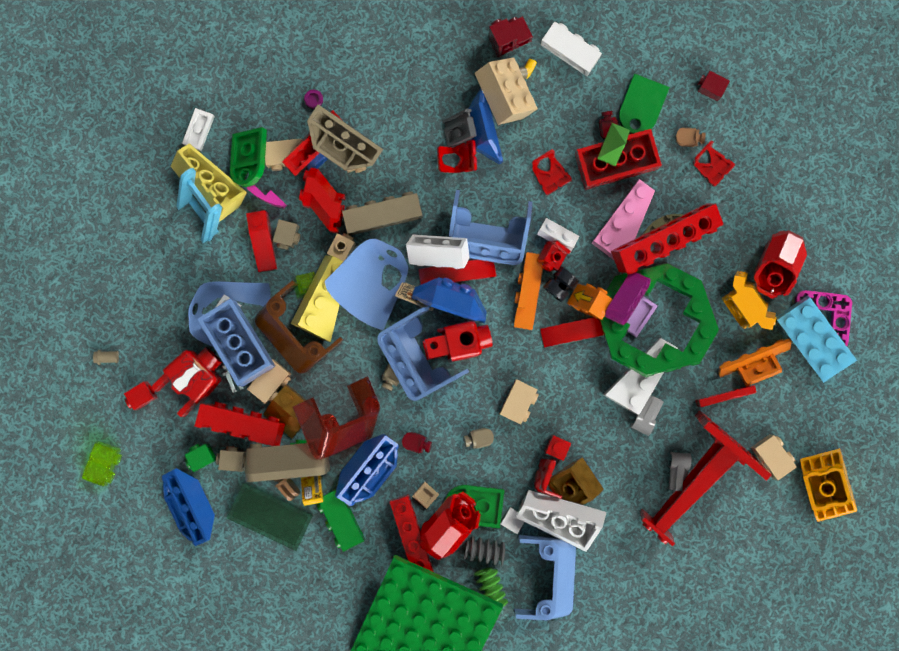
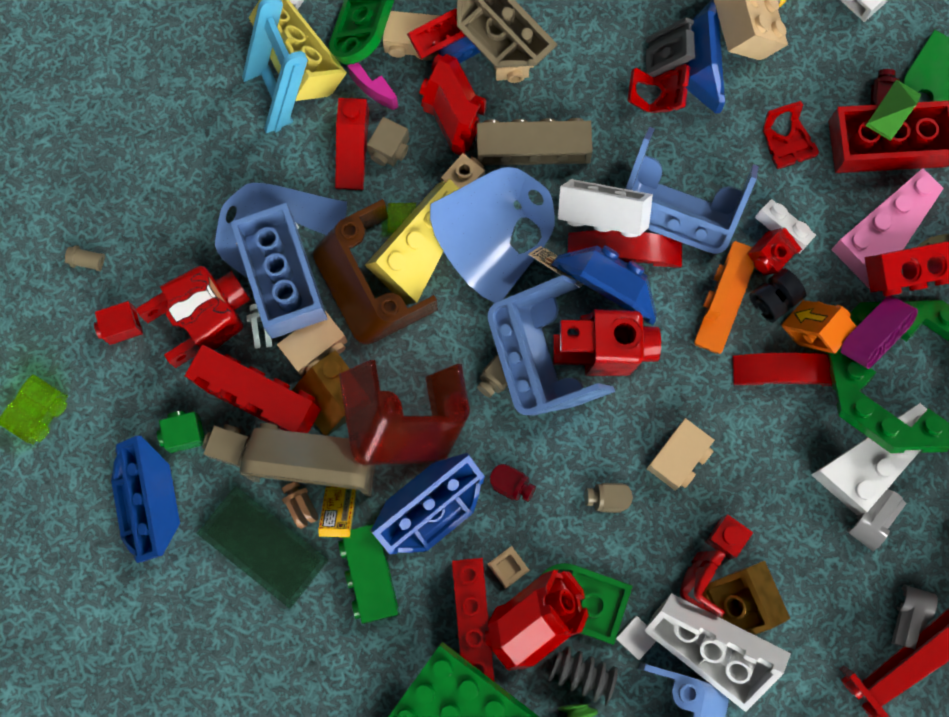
camera: 15 degrees right, 10 degrees down
(641, 316) = (890, 369): lavender tile -> none

